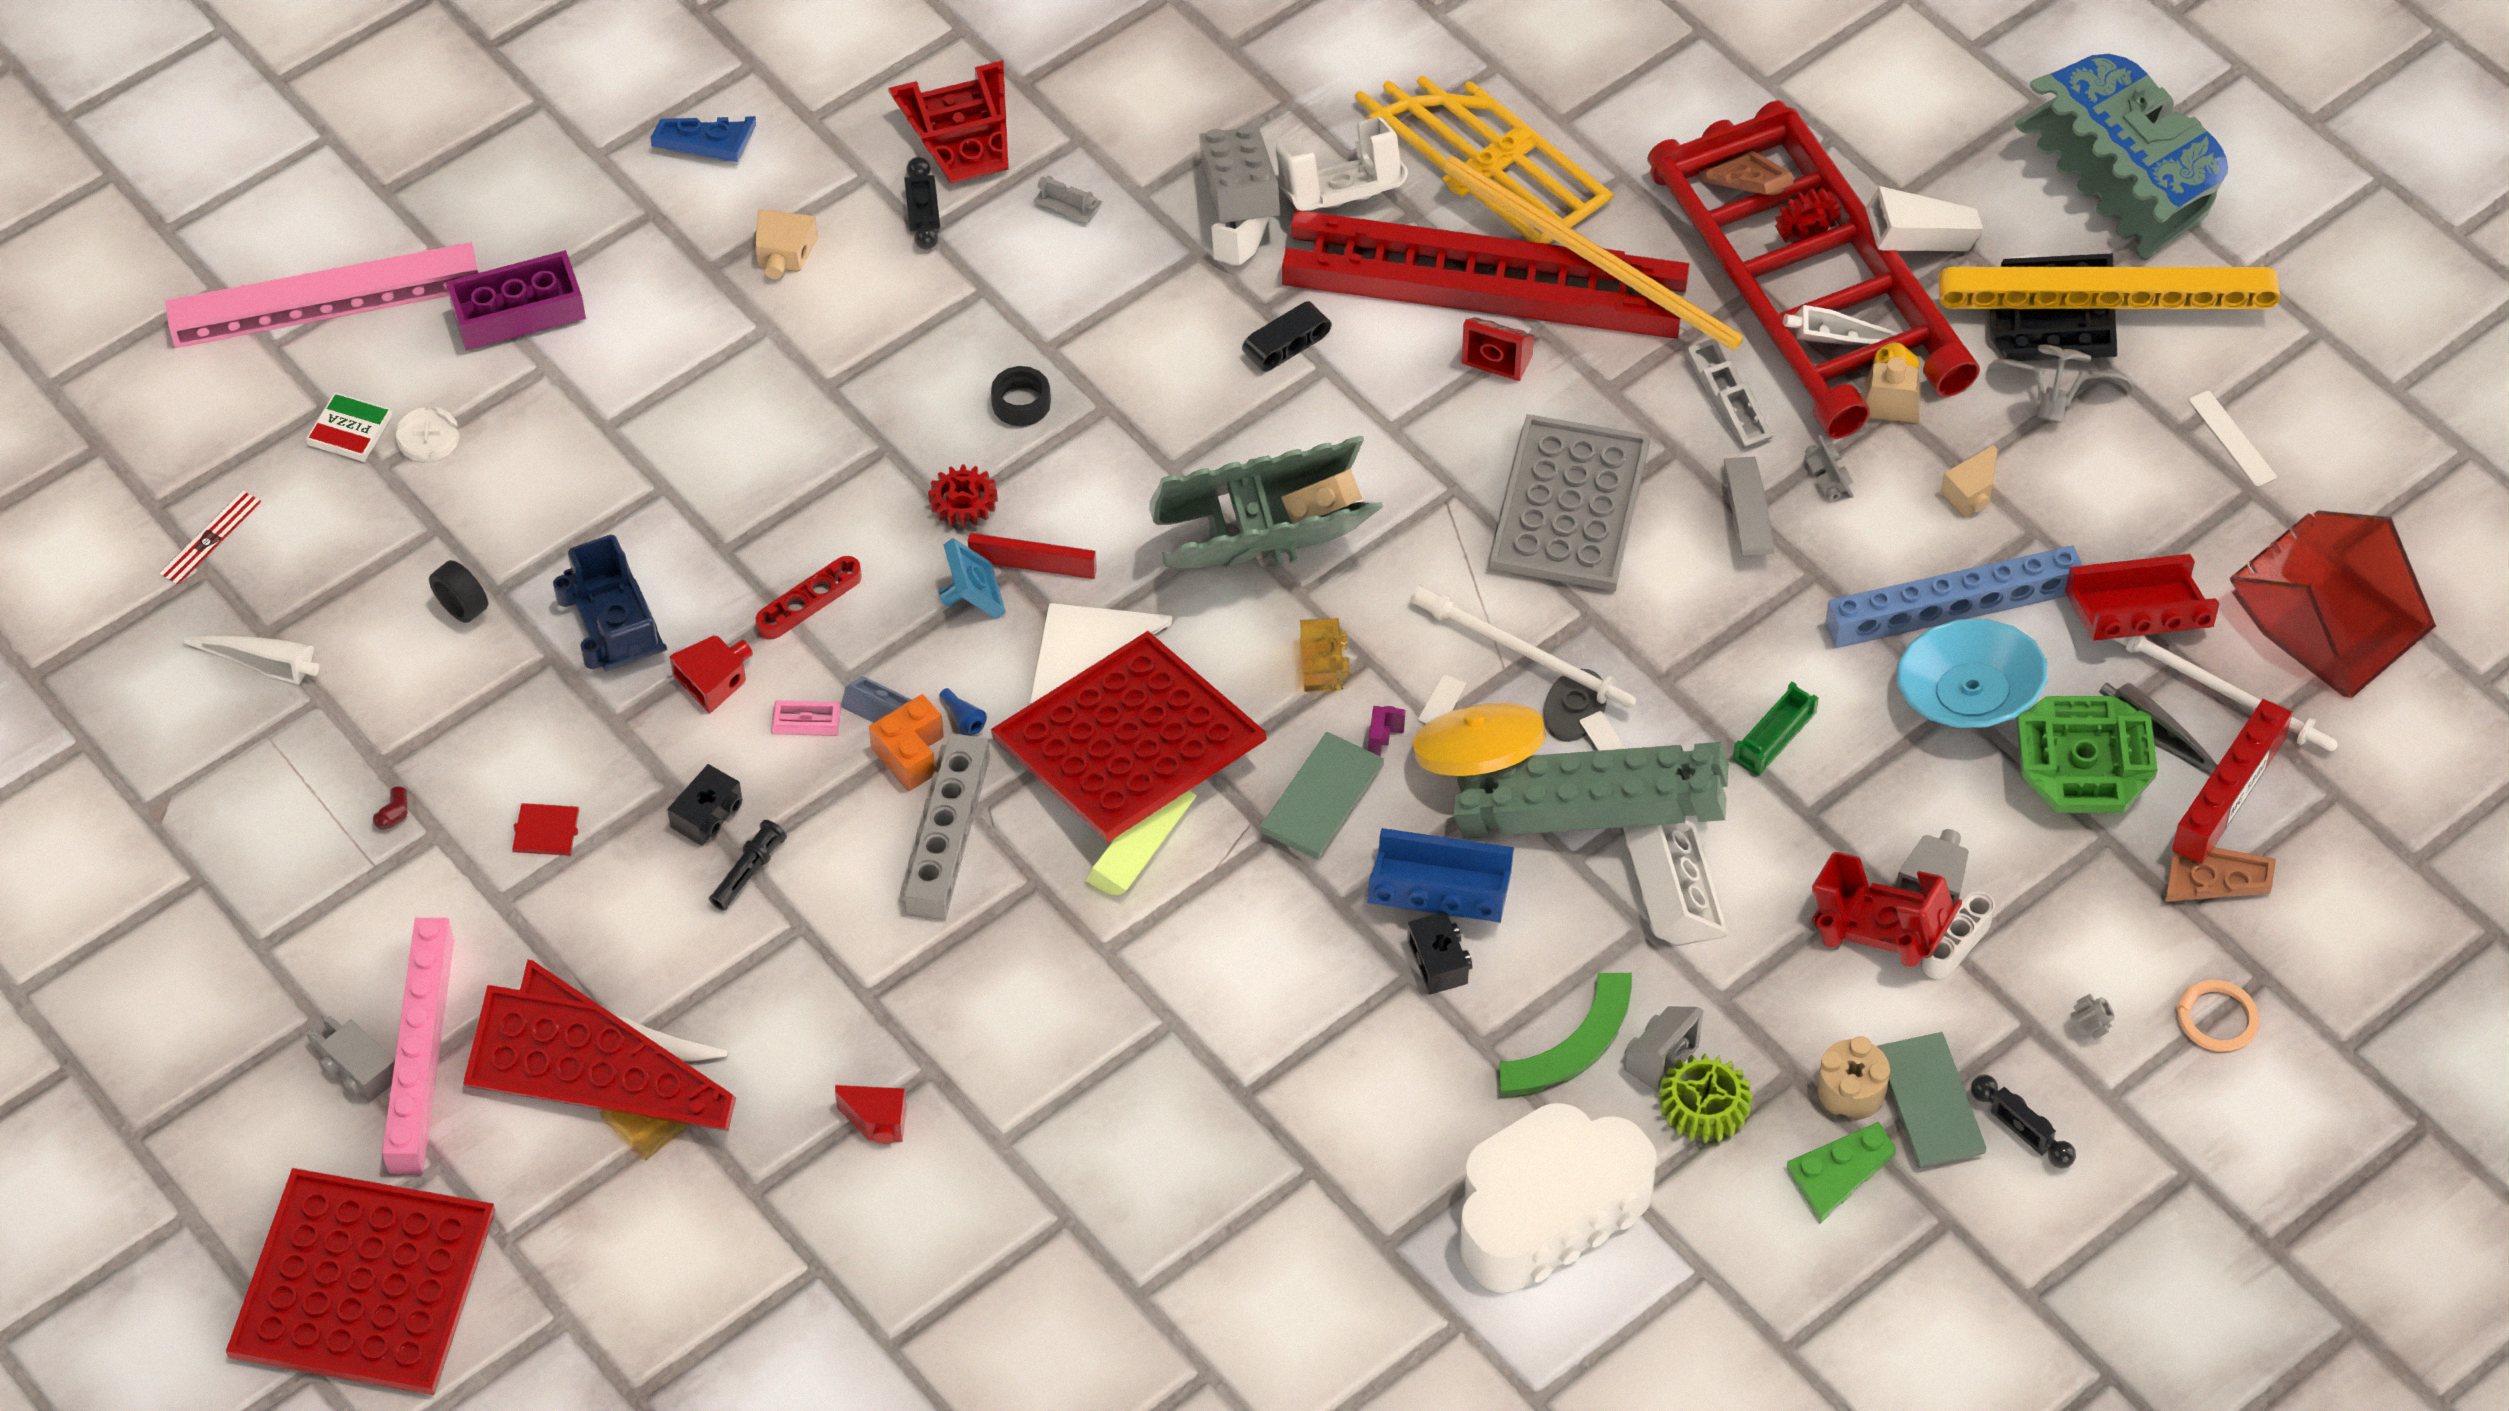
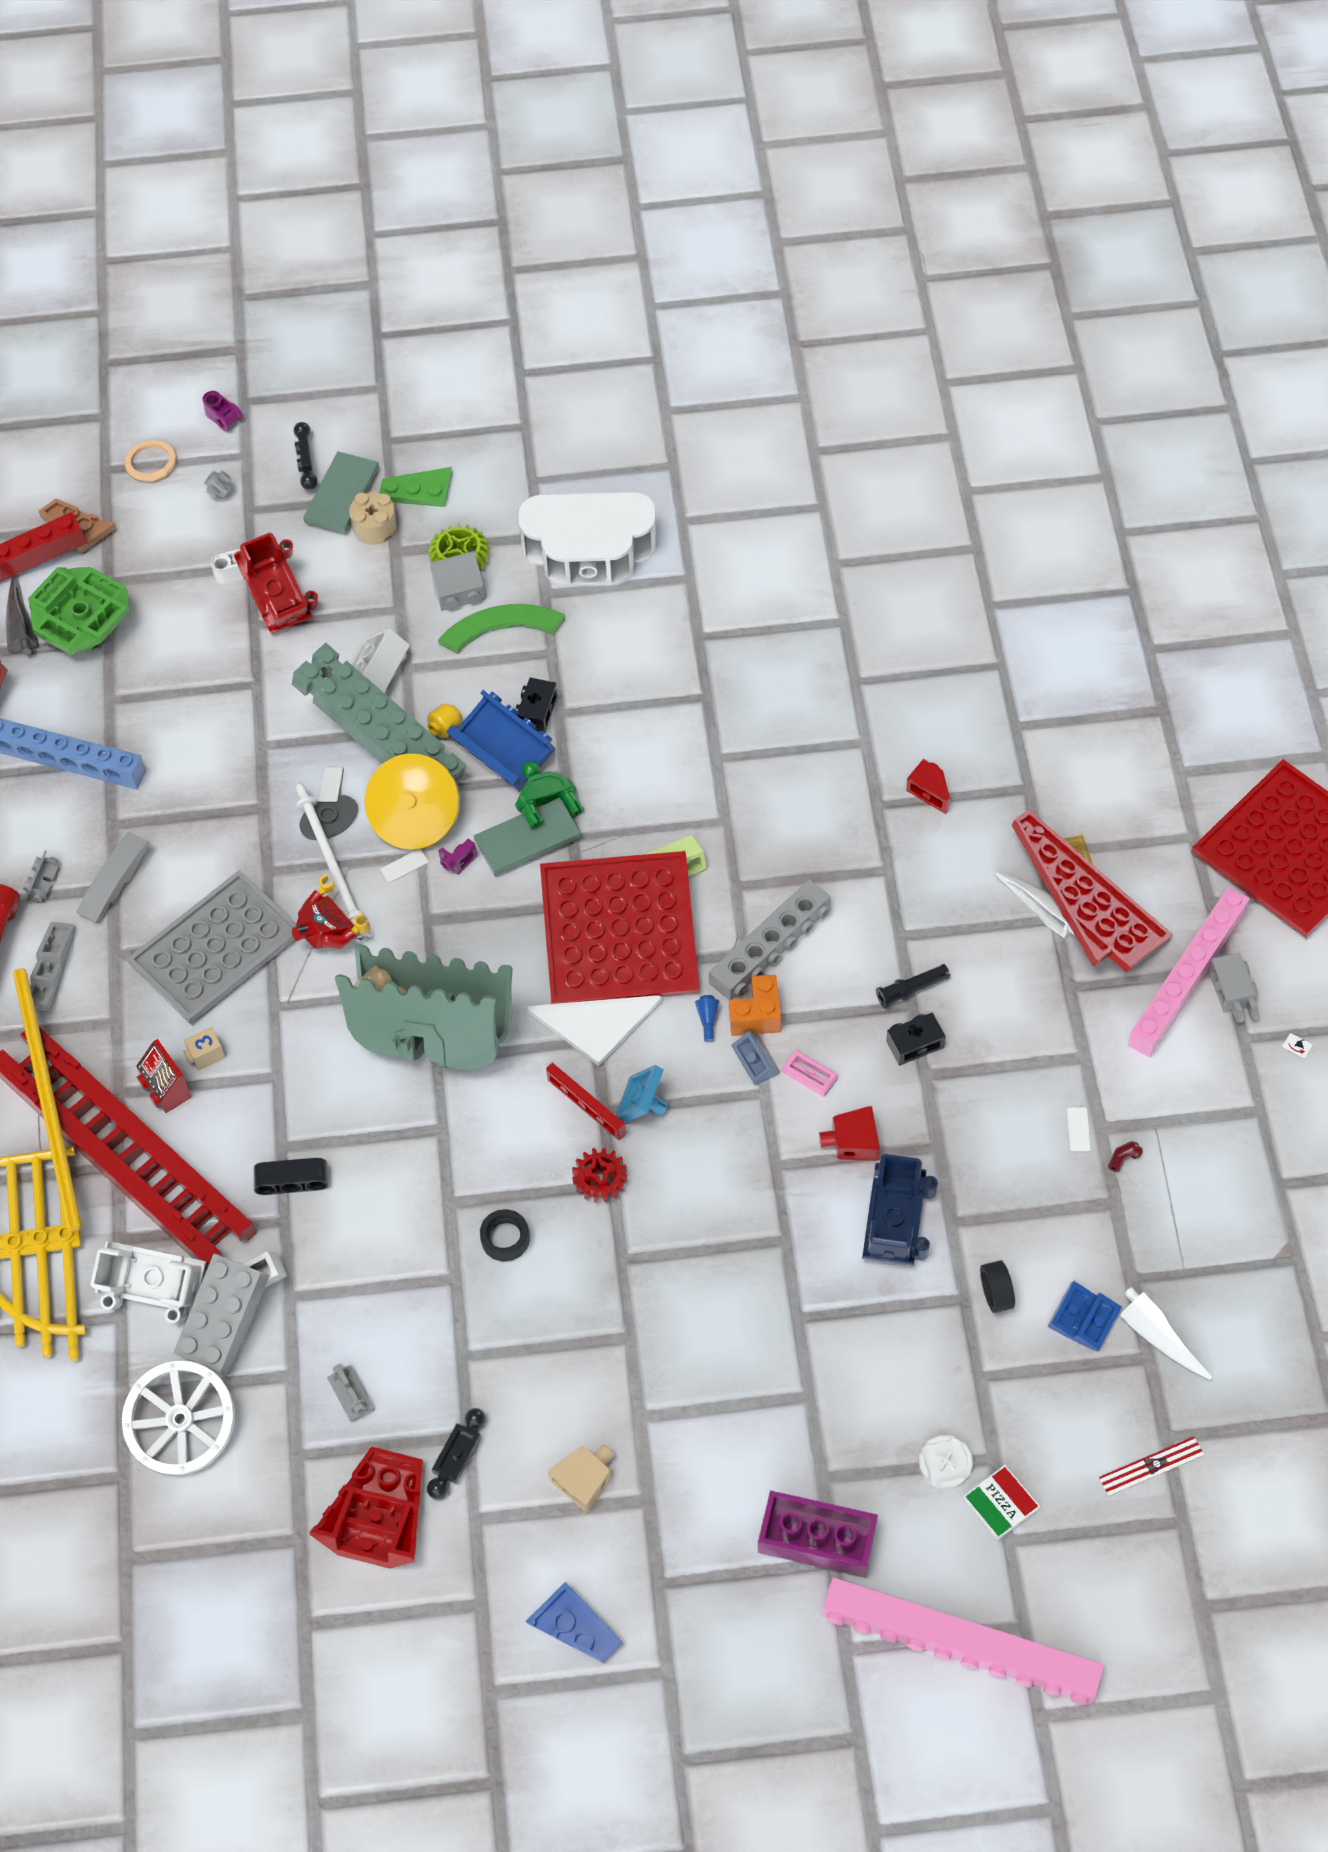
camera: 145 degrees left, 5 degrees up
(247, 1043) = (1297, 1045): none -> white sticker
(352, 631) = (1084, 1316): none -> blue slope
(463, 818) = (1078, 1129): none -> white sticker
(545, 829) = (1027, 1089): red piece -> none
(804, 593) = (754, 1166): red beam -> none
(1210, 97) = (173, 1413): none -> white wheel
(1320, 670) = (455, 937): clear yellow brick -> none
(1342, 845) = (544, 789): none -> green connector
(1465, 571) = (323, 921): none -> torso
(1484, 398) = (203, 1049): none -> tan brick
(1532, 871) = (442, 718): none -> yellow head
(1776, 729) = (229, 733): green container -> none
(1939, 857) = (220, 603): light grey torso -> none
(1972, 673) = (91, 665): medium azure dish -> none
(2192, 1123) = (220, 410): none -> magenta piece

